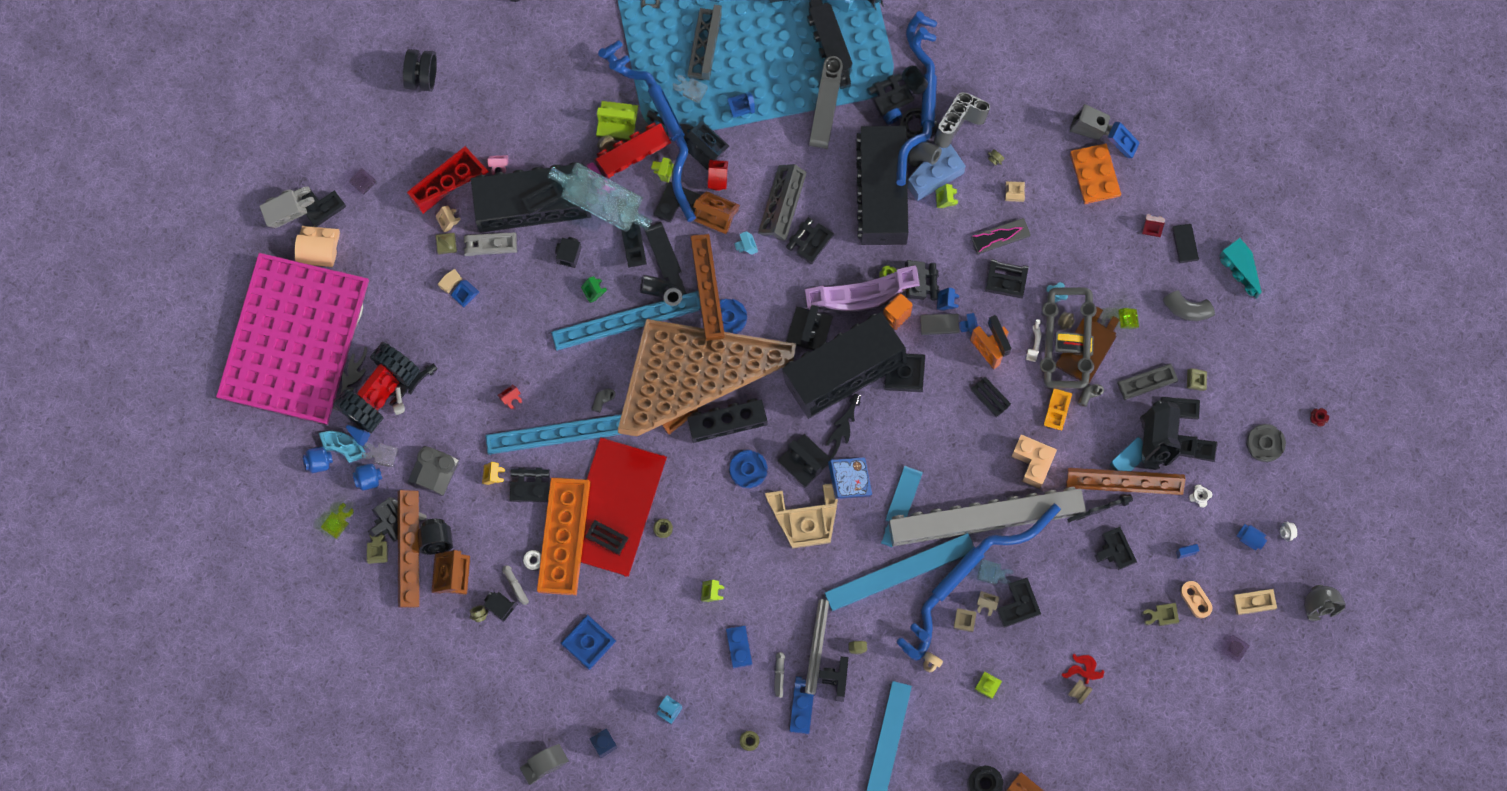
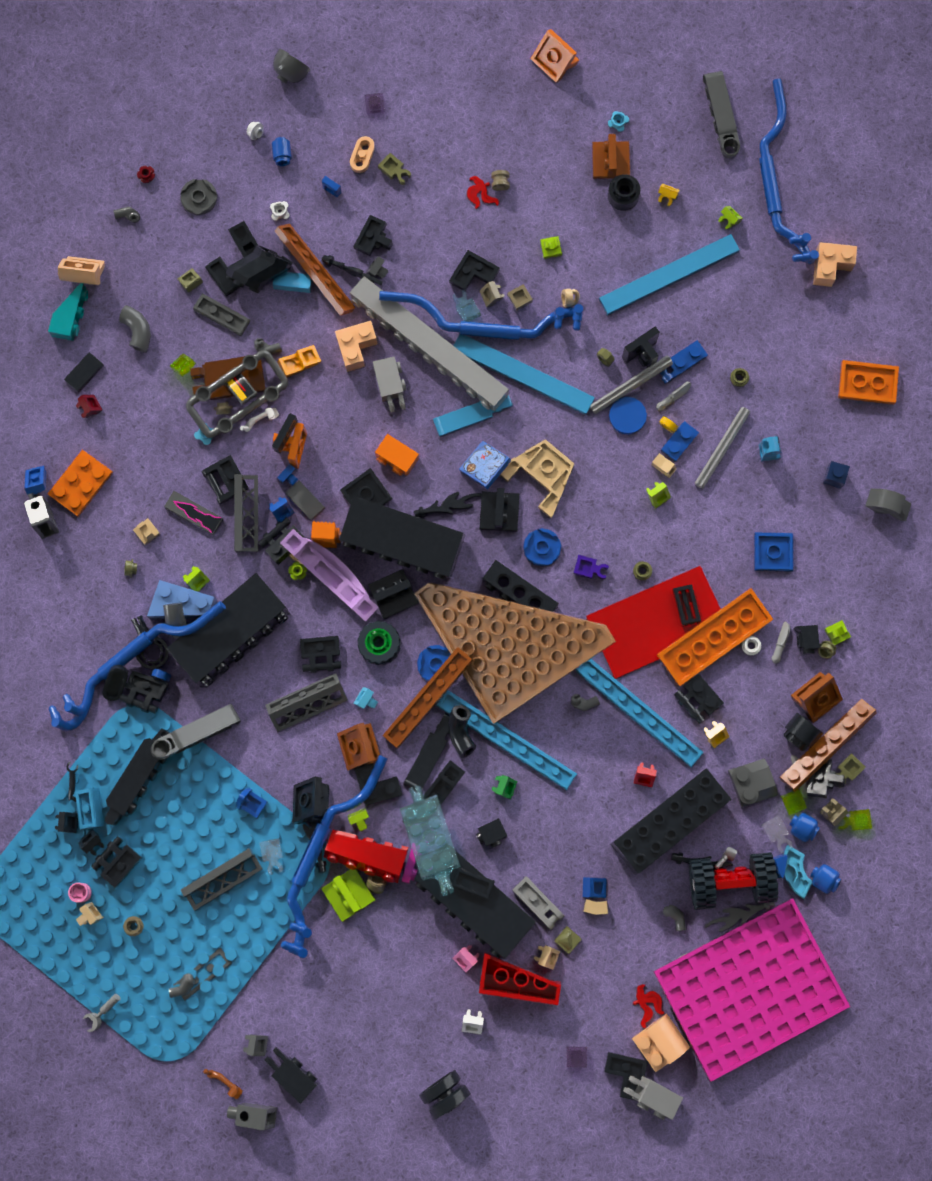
camera: 130 degrees left, 5 degrees up
(354, 267) = (649, 997): none -> red piece
(357, 509) = (834, 812): none -> dark tan tile
(391, 333) = (677, 915): none -> dark grey arm
(391, 486) = (793, 802): none -> clear neon green plate
(449, 130) = (472, 1024): none -> white tile
(458, 379) = (671, 821): none -> black brick
(483, 634) = (837, 632): none -> lime tile
(702, 488) = (587, 567): none -> dark purple plate
(704, 676) = (722, 447): none -> light grey axle
(717, 175) = (328, 768): red brick -> none
(730, 616) = (664, 465): none -> tan piece
(759, 648) = (668, 424): none -> yellow tile
(780, 276) = (381, 654): none -> black wheel
(795, 624) = (627, 415): none -> blue tile
(915, 418) = (396, 455): none -> orange brick
(963, 108) = (110, 624): dark grey beam -> none
(968, 263) = (238, 512): none -> dark grey fence
(979, 461) = (389, 381): none -> light grey hinge
(980, 385) = (333, 401): black tile -> none
(1085, 529) = (376, 268): none -> dark grey tile
(1255, 602) = (328, 114): tan plate -> none
(1273, 302) = (81, 270): none -> light nougat brick
(1296, 378) = (127, 212): none -> dark grey arm

